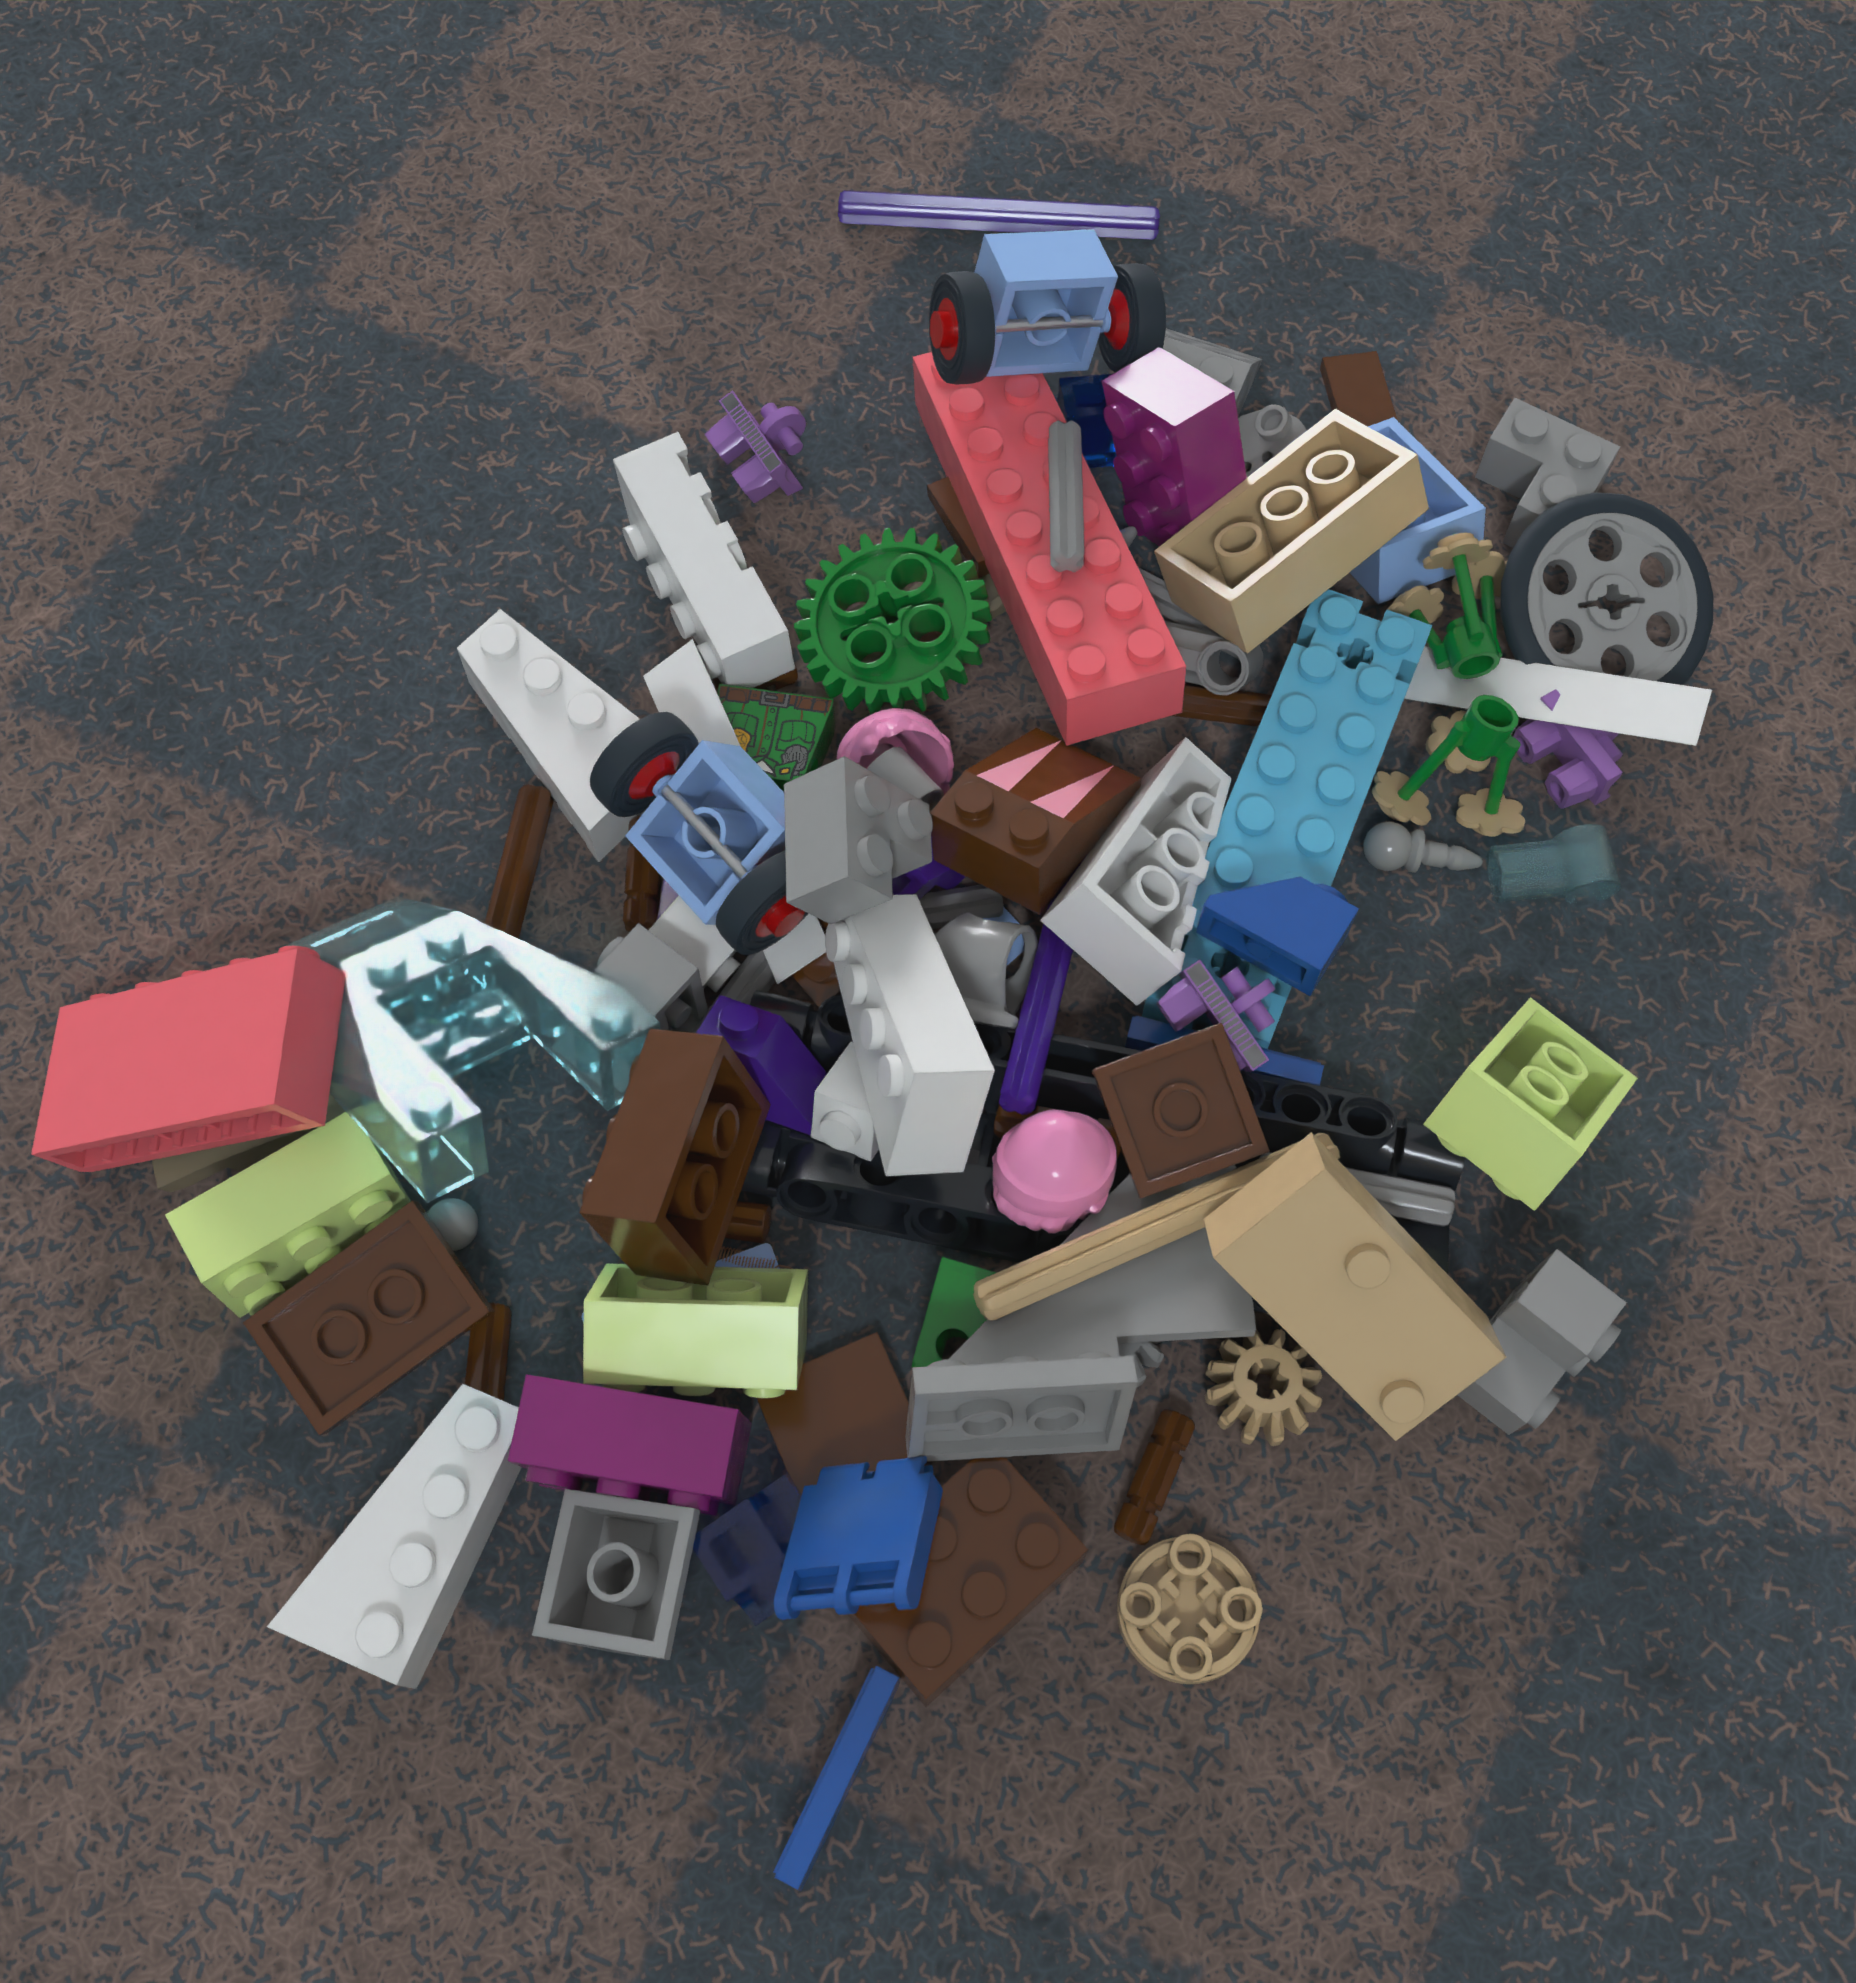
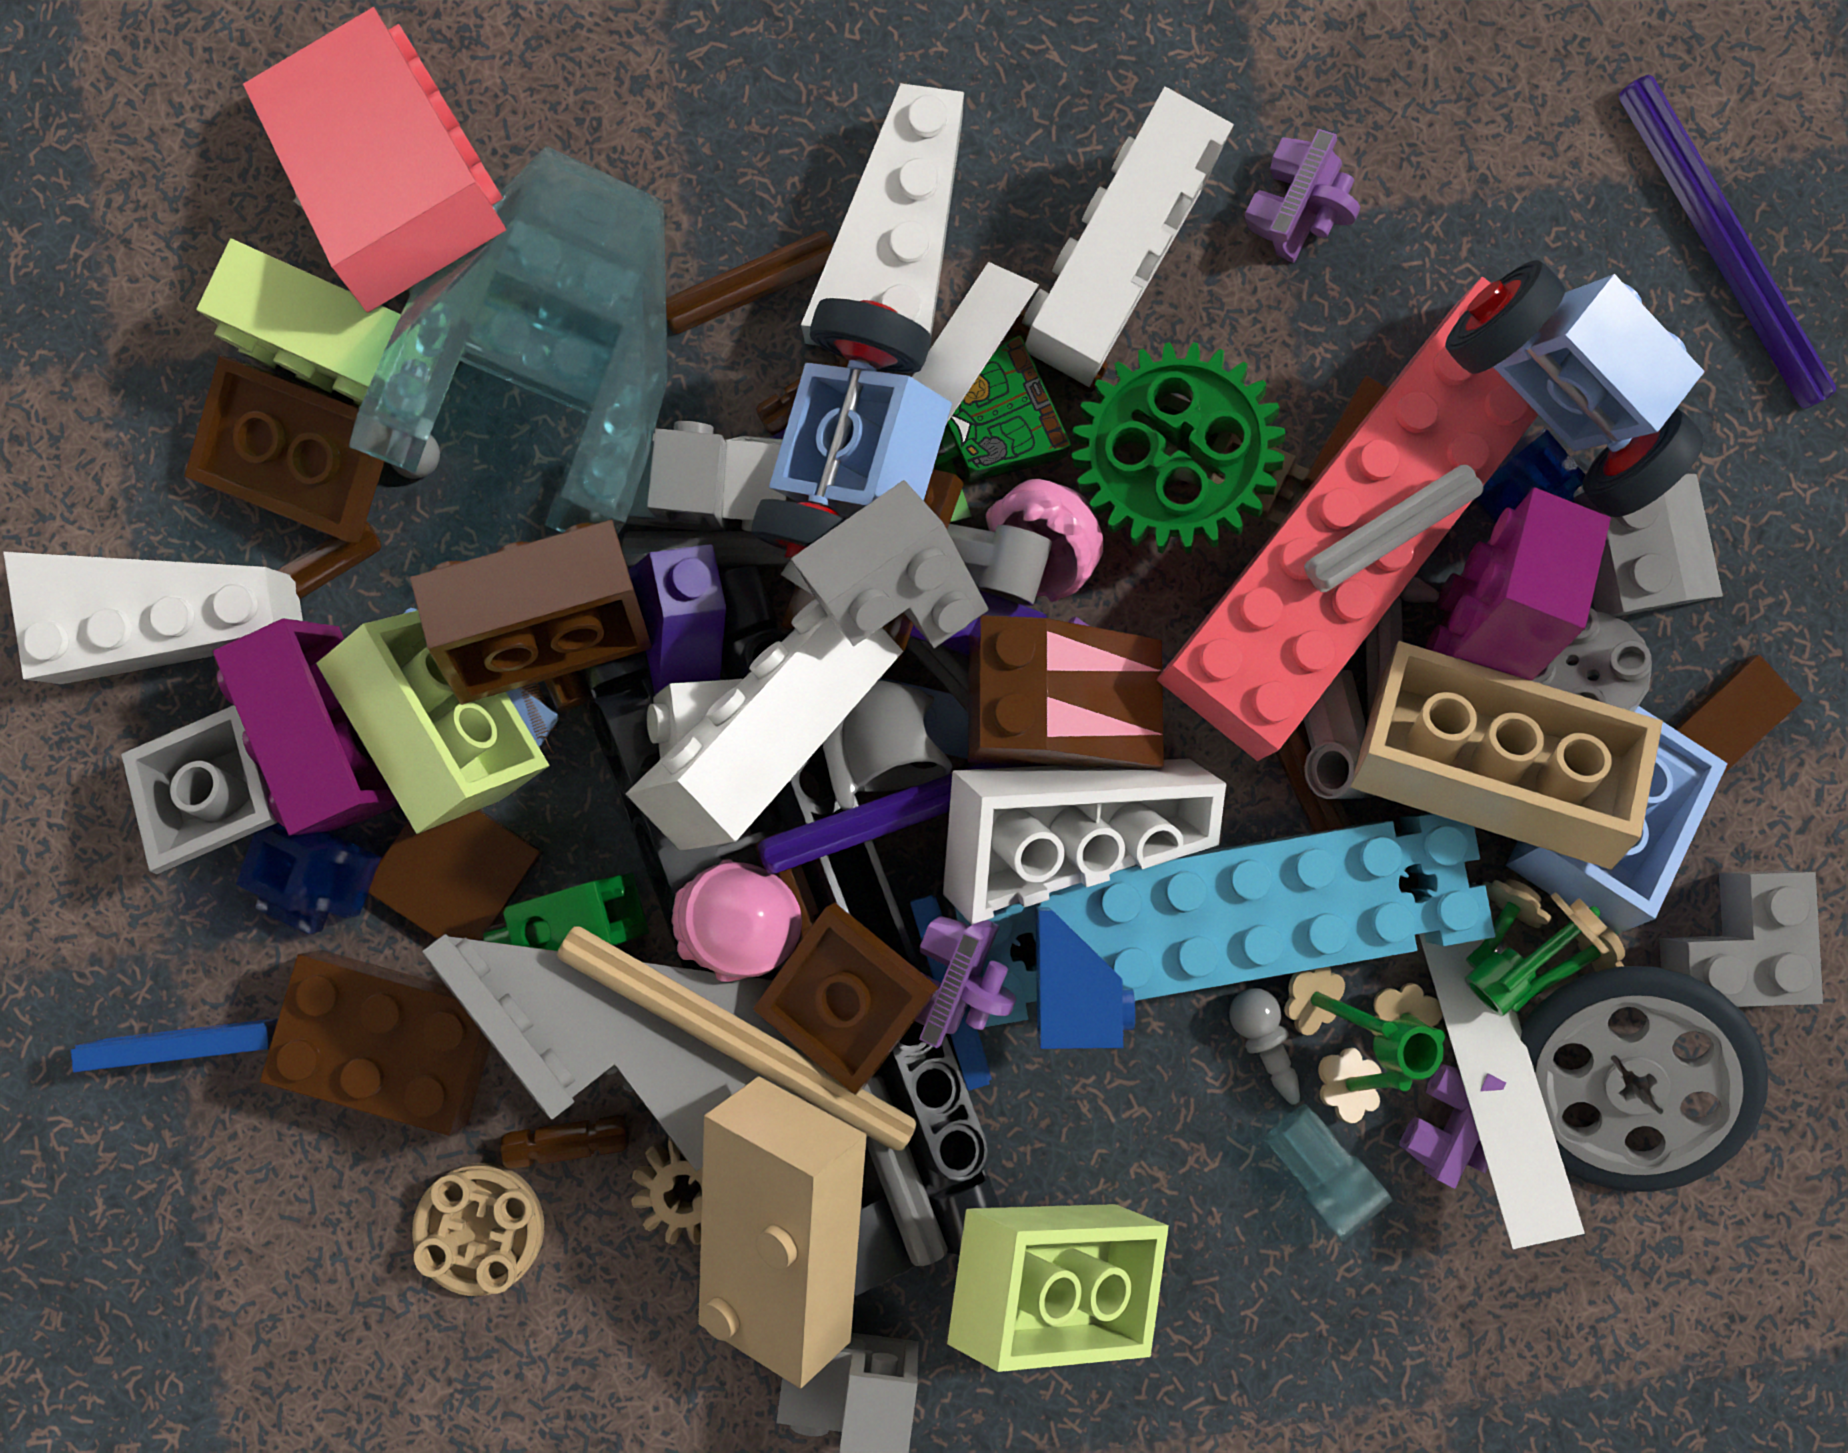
camera: 55 degrees right, 20 degrees up
(860, 1538) = (336, 959): blue plate -> none

